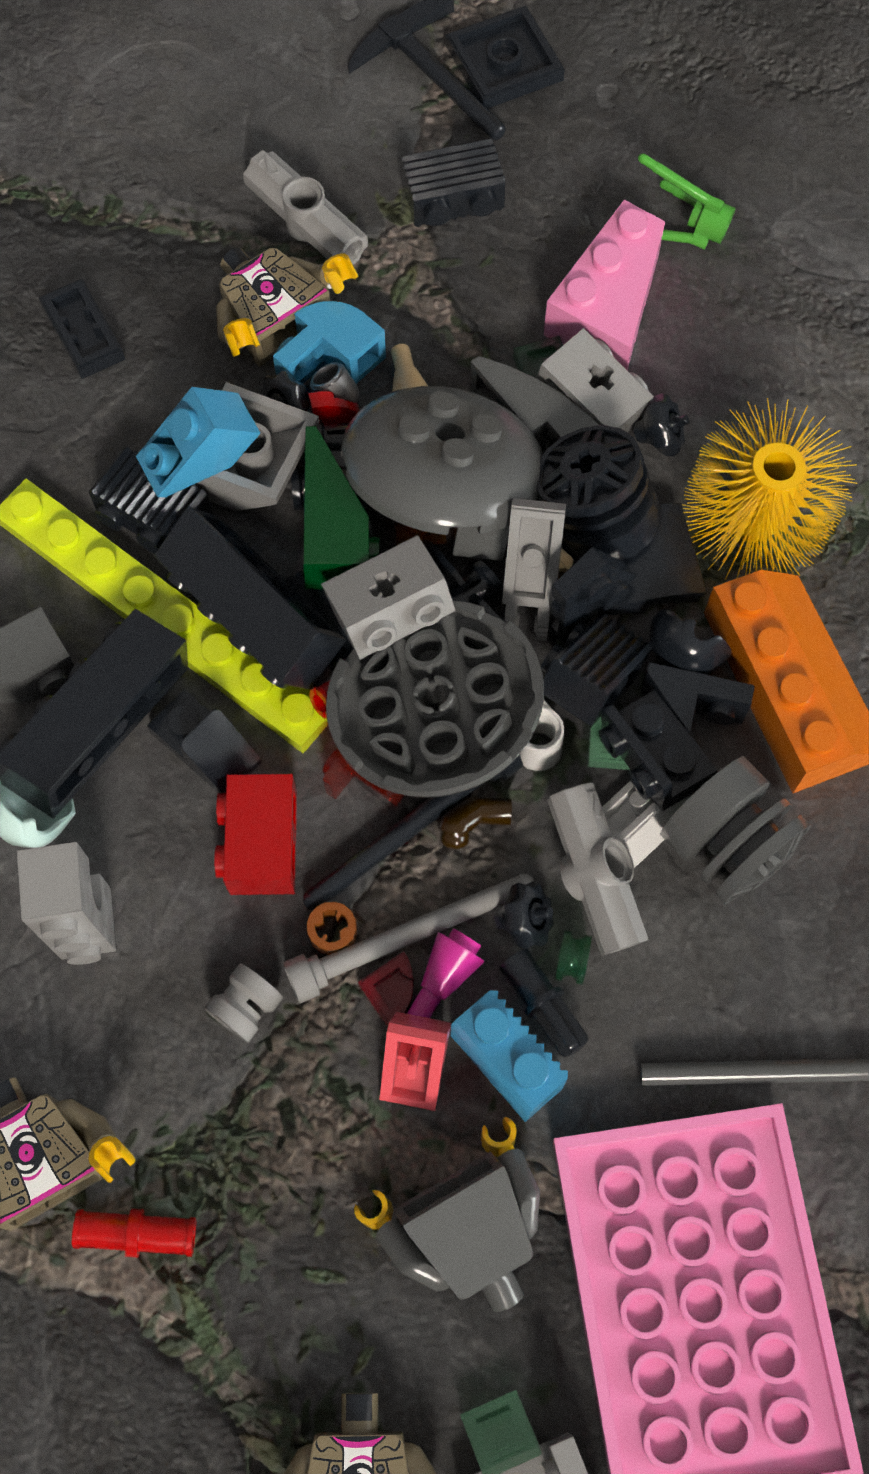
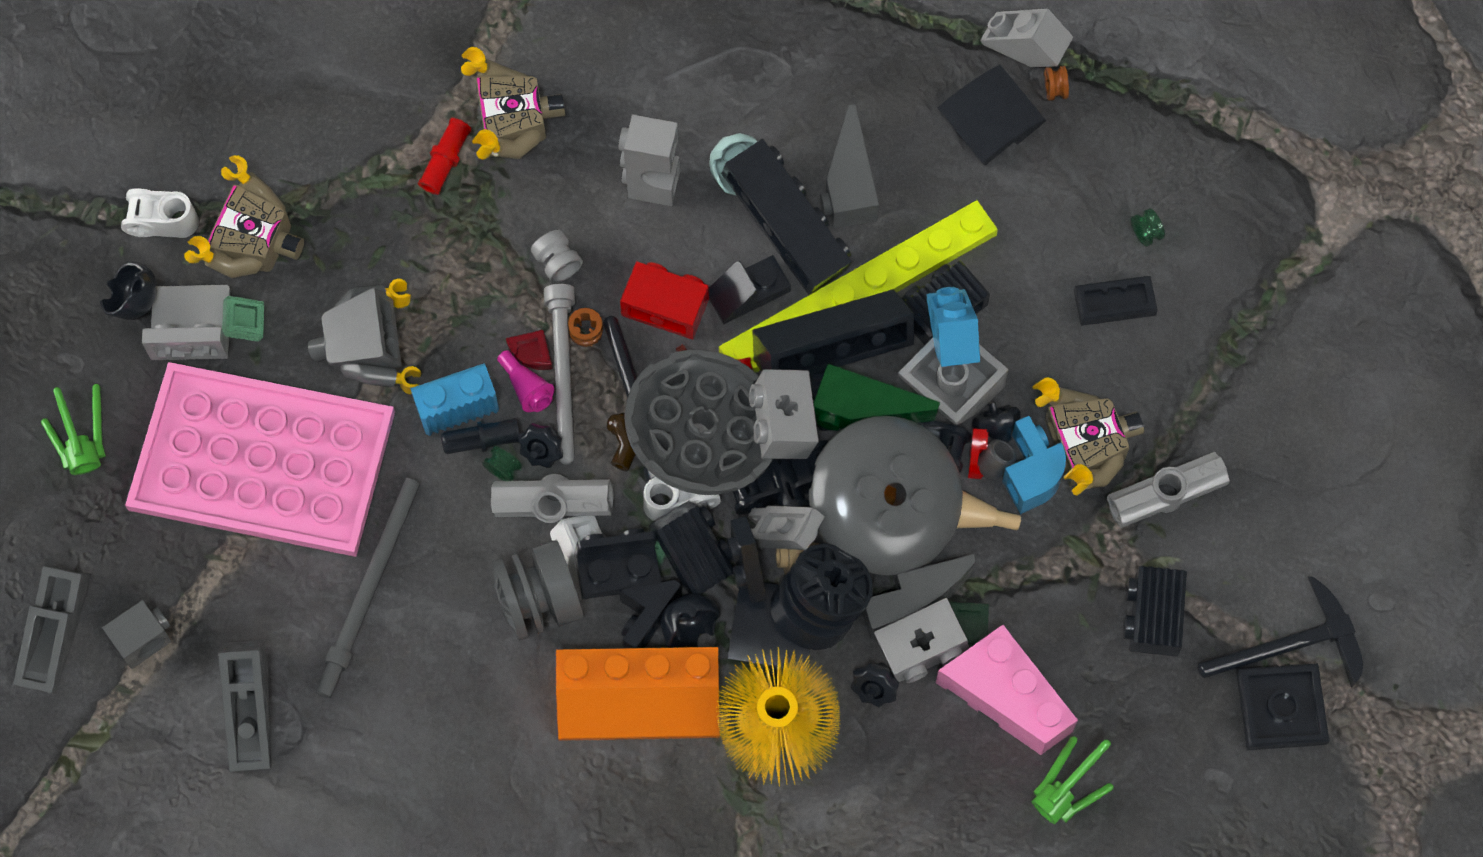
camera: 110 degrees right, 0 degrees up
(414, 1060) = (481, 342): coral slope -> none

